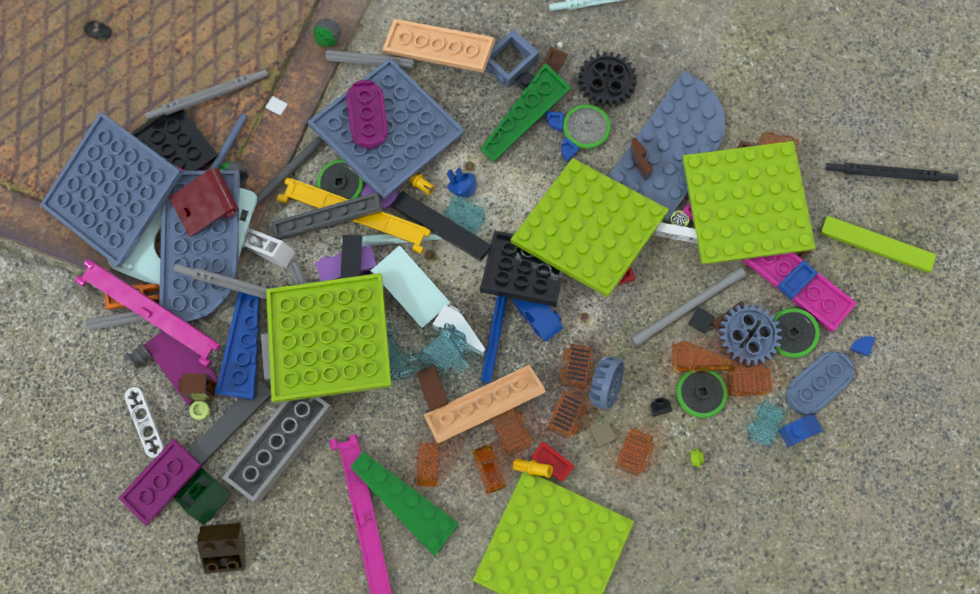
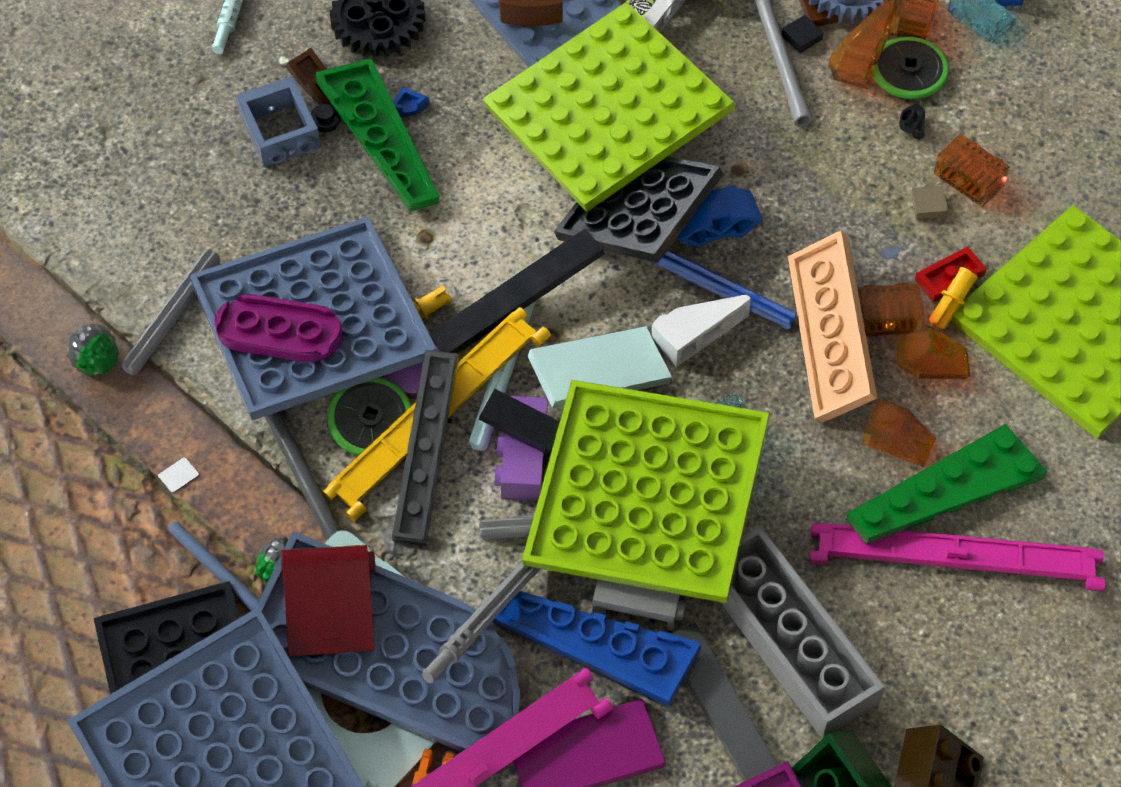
camera: 70 degrees left, 15 degrees down
(197, 387) = (652, 716): reddish brown brick -> none
(200, 410) = (682, 749): yellowish green tile -> none
(206, 94) = (106, 568): light grey axle -> none
(268, 248) = (441, 549): white slope -> none
(432, 388) = (777, 389): reddish brown slope -> none
(439, 45) = (206, 201): light nougat plate -> none
(445, 350) = (727, 345): clear light blue torso -> none
(462, 184) = (458, 246): blue piece -> none
(465, 215) = (505, 259): clear light blue bracket -> none
(566, 415) = (885, 232): clear orange brick -> none
(568, 150) = (464, 102): blue tile -> none
(577, 366) = (815, 196): clear orange brick -> none
(587, 137) = (456, 65): clear wheel -> none
(607, 382) = (861, 157): sand blue gear -> none
(697, 457) = (1005, 102): lime plate -> none

